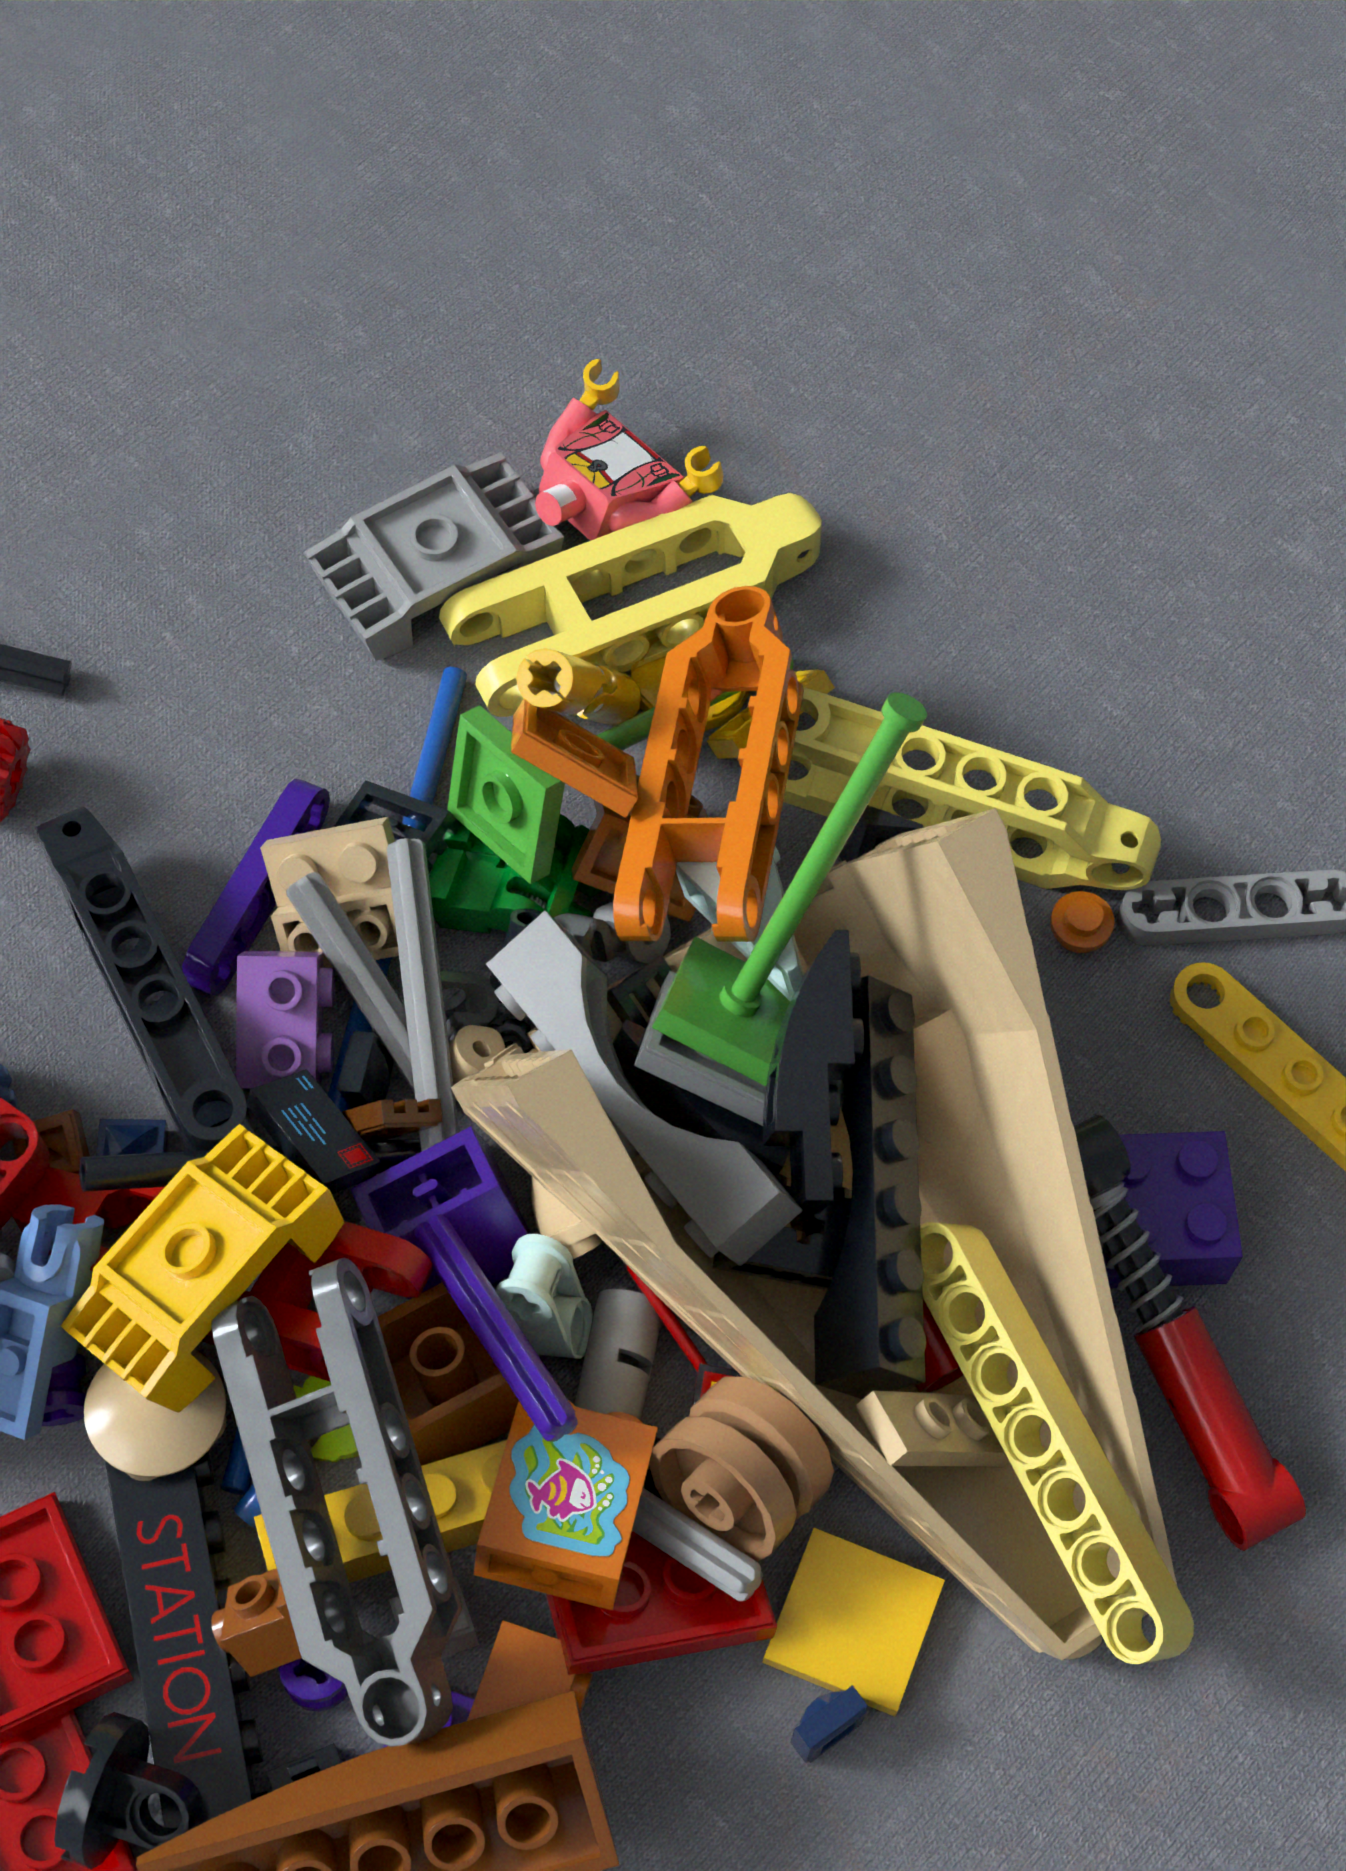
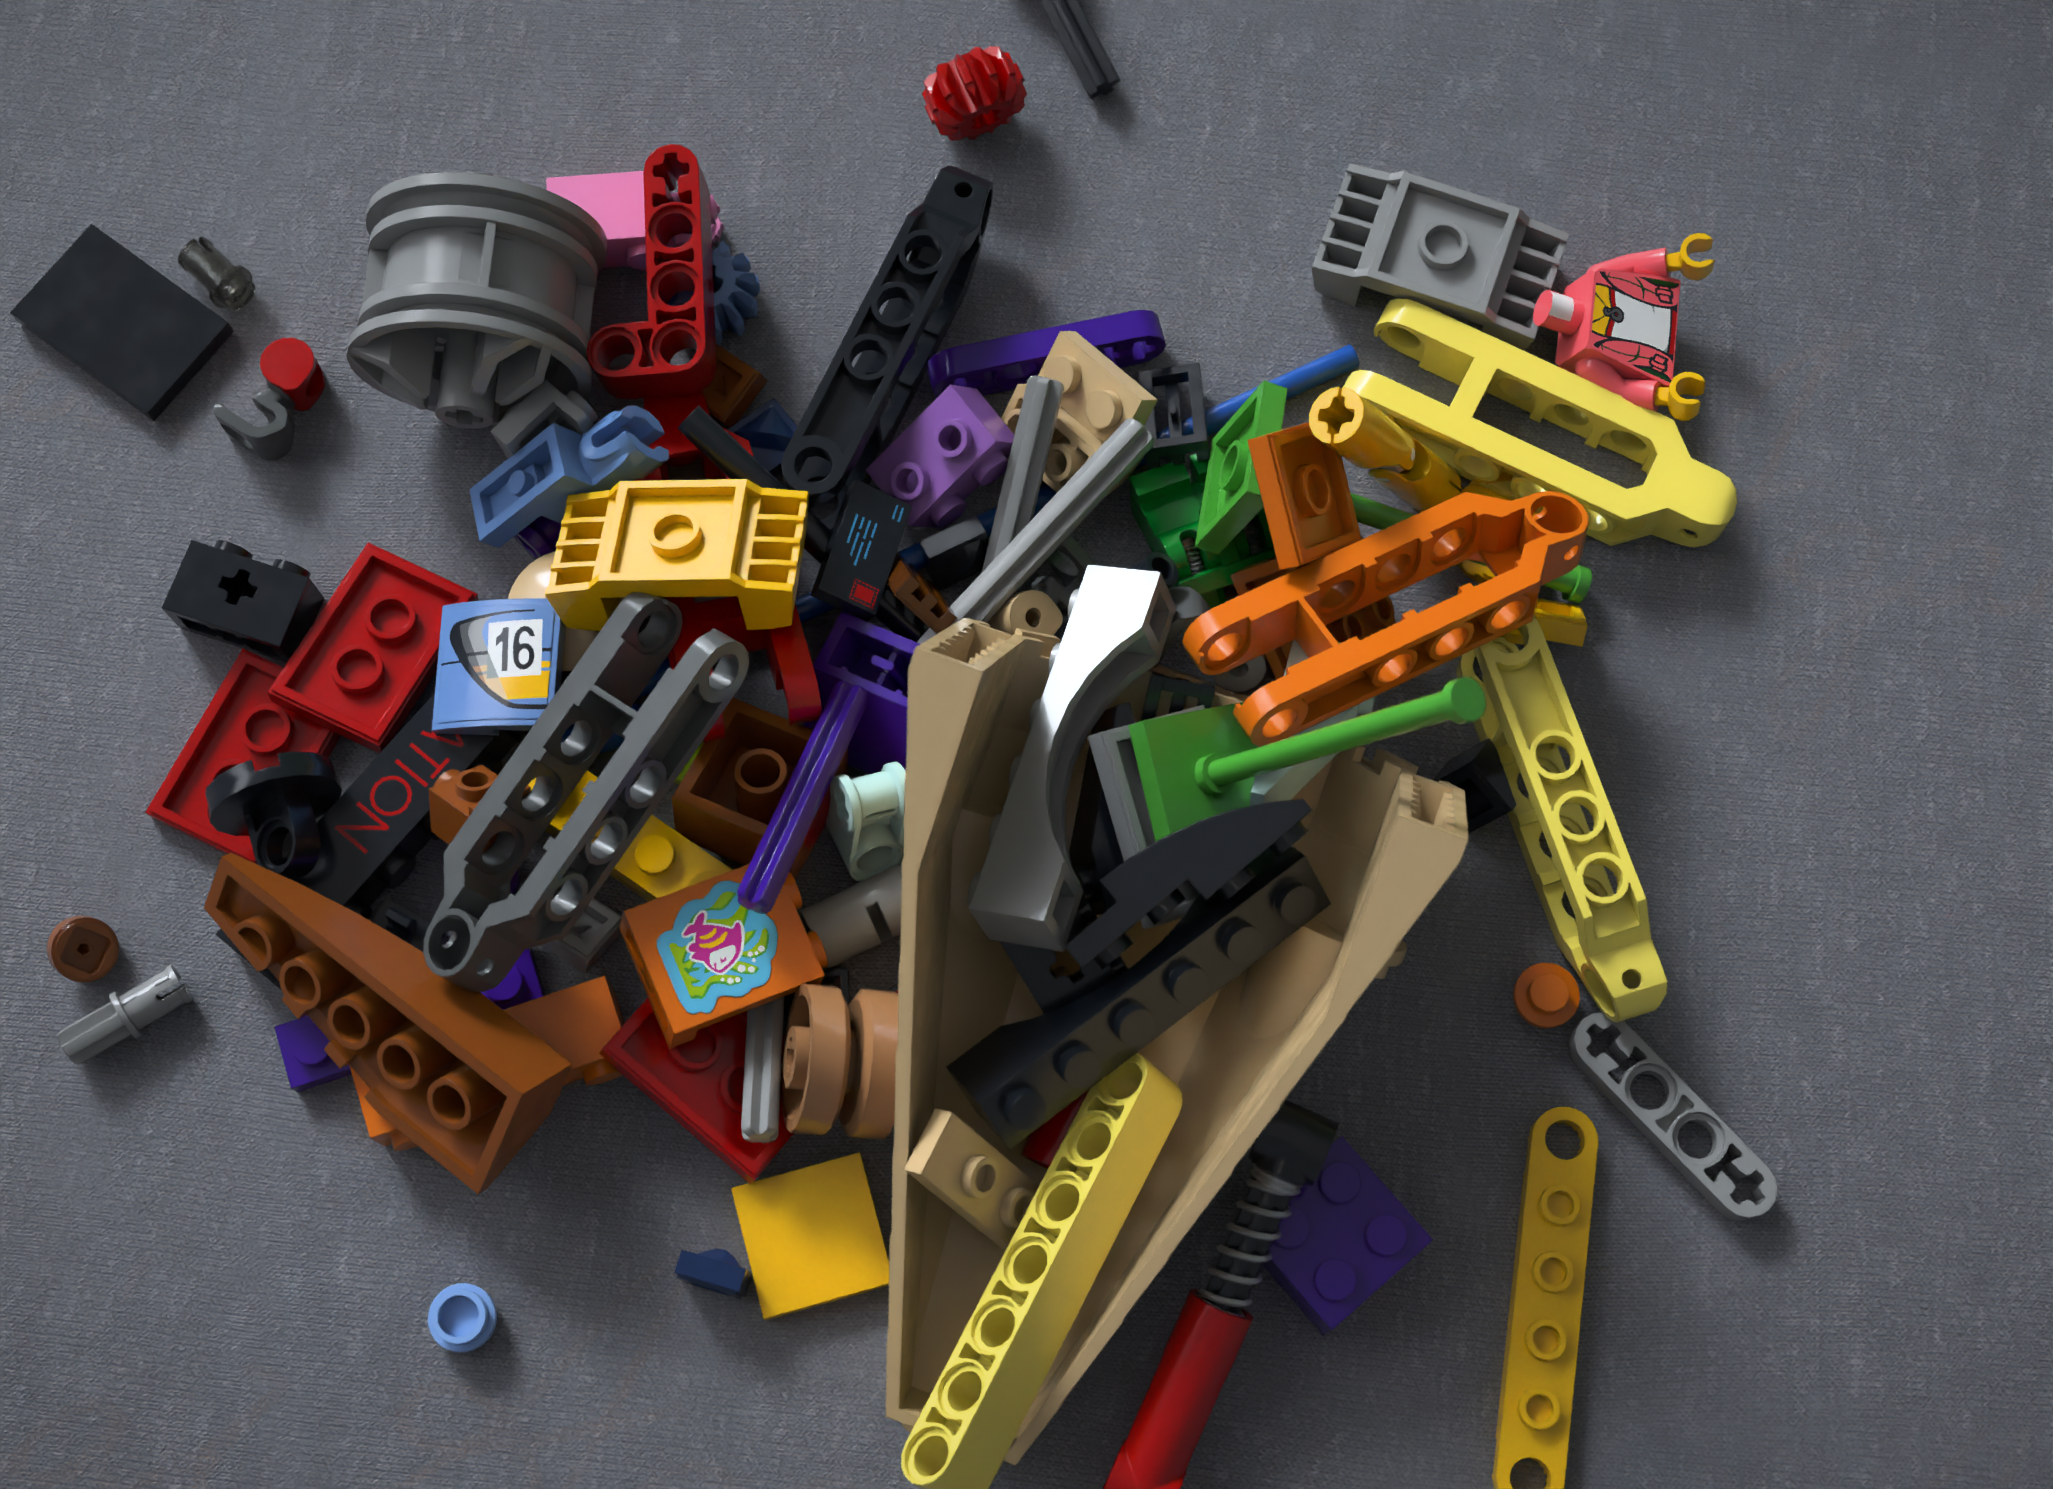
camera: 55 degrees right, 10 degrees up
(156, 1503) = (496, 665): none -> slope

